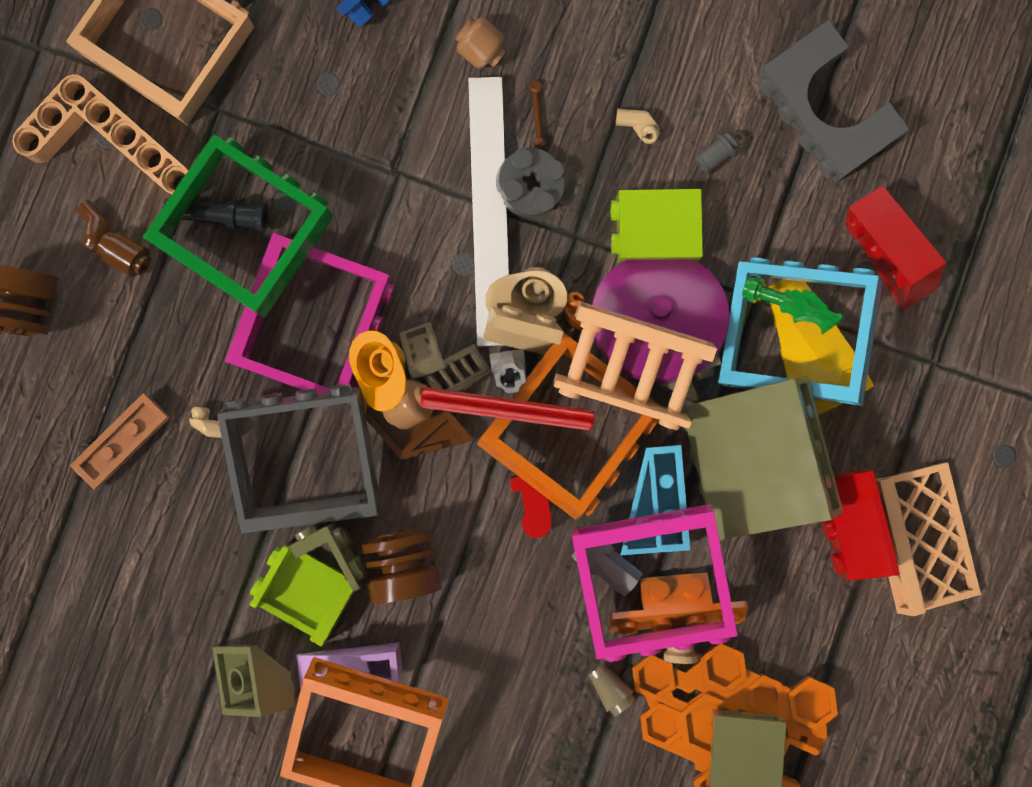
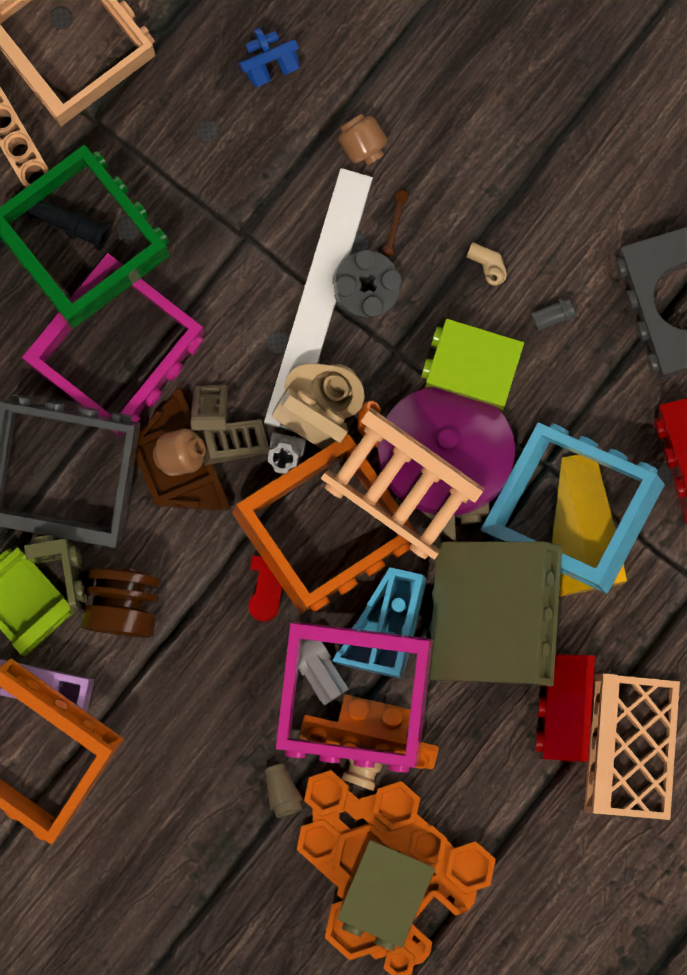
camera: 25 degrees right, 5 degrees down
(378, 369) = (163, 410): light orange piece -> none
(507, 408) = (270, 485): red axle -> none
(801, 305) = (578, 479): green piece -> none

